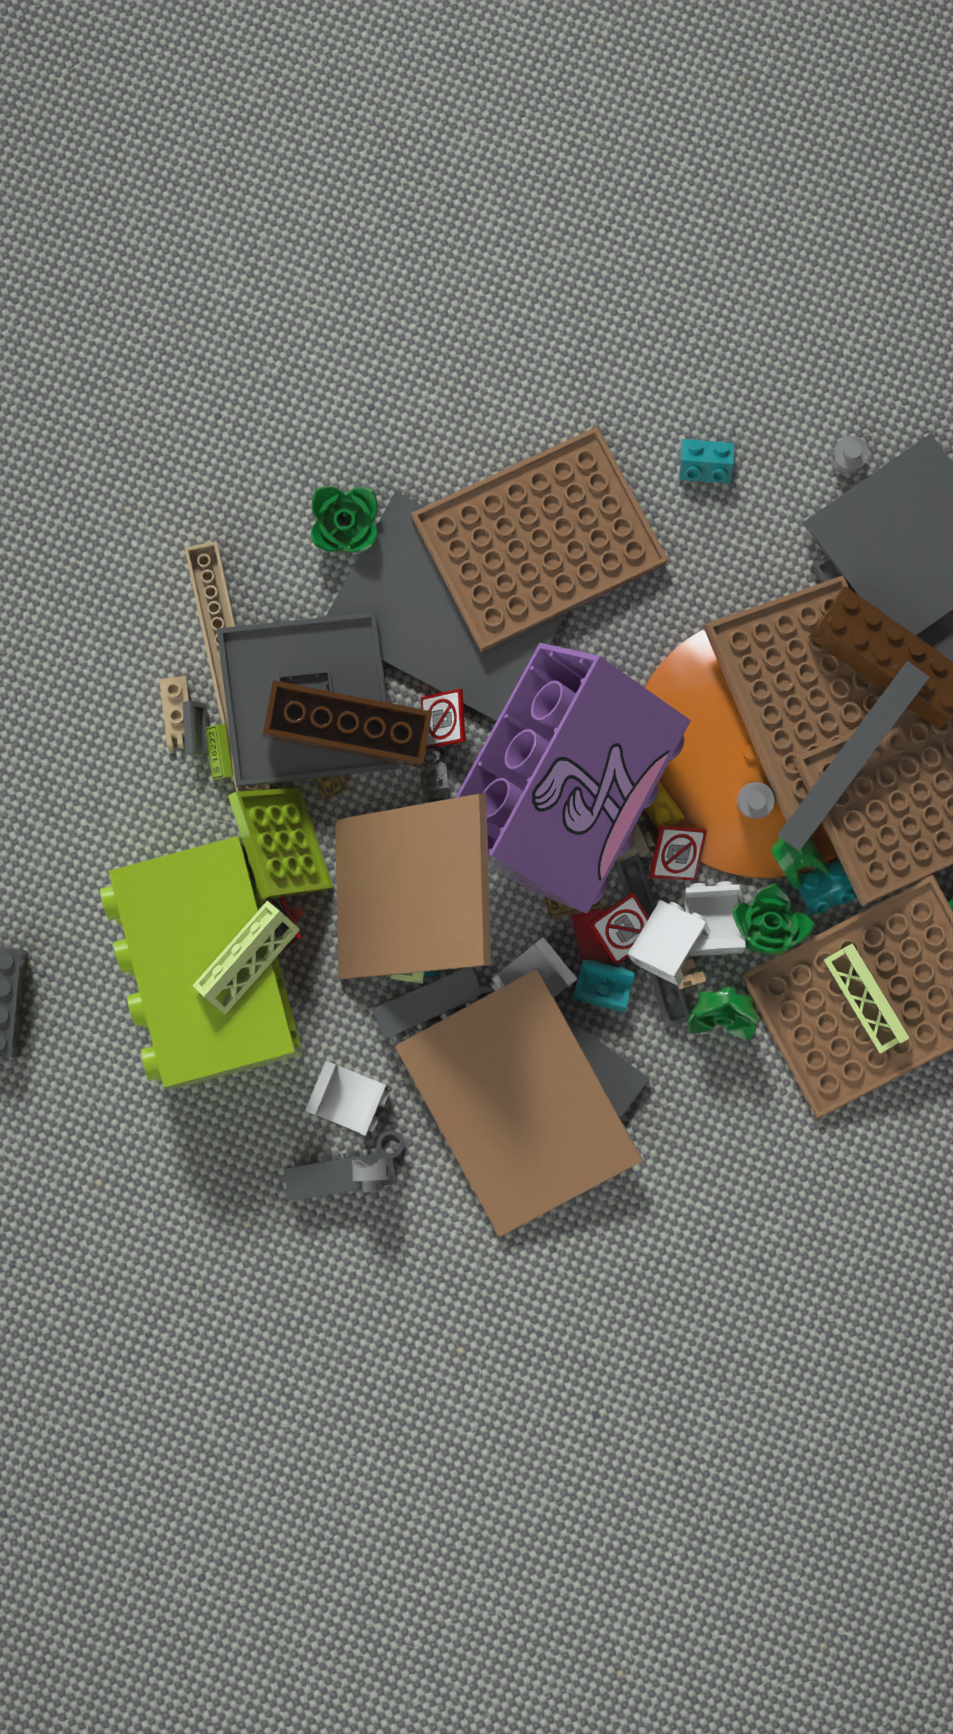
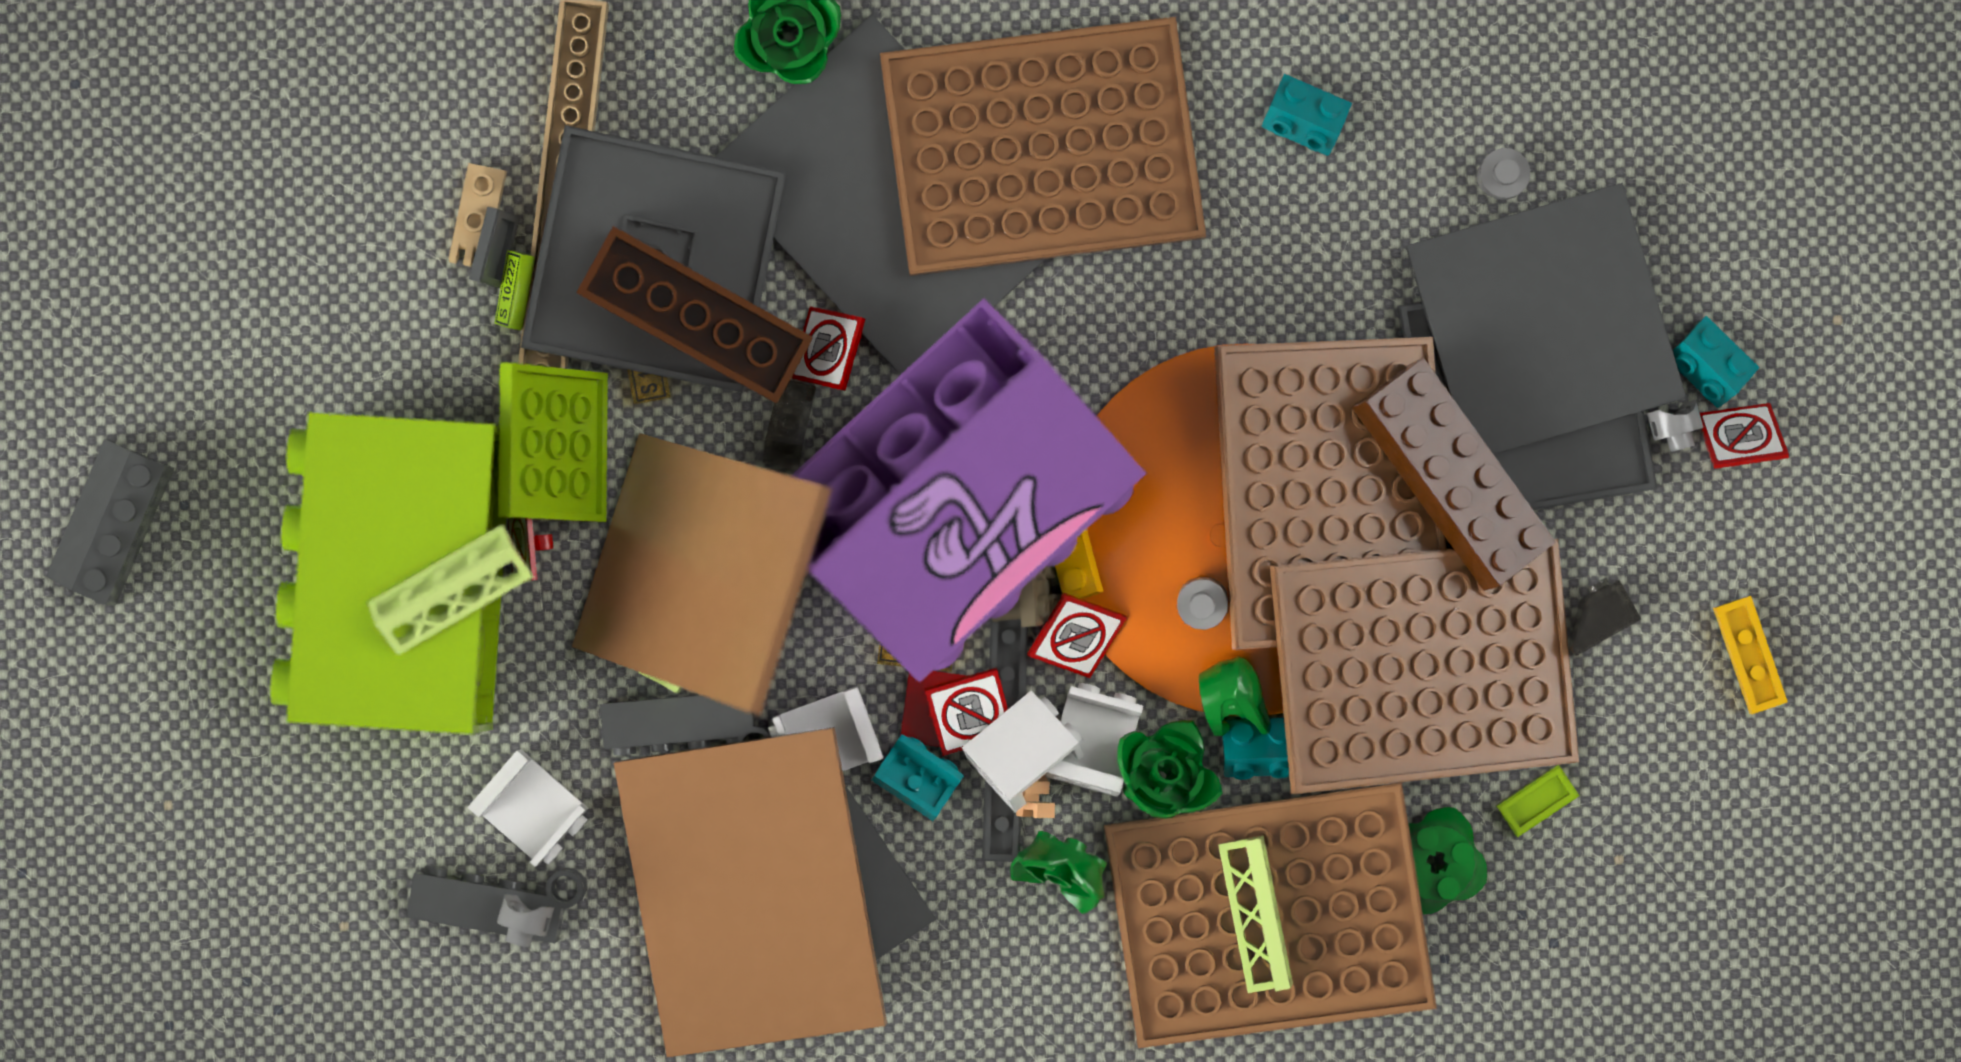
camera: 20 degrees right, 5 degrees up
(852, 756) = (1348, 592): dark grey tile -> none

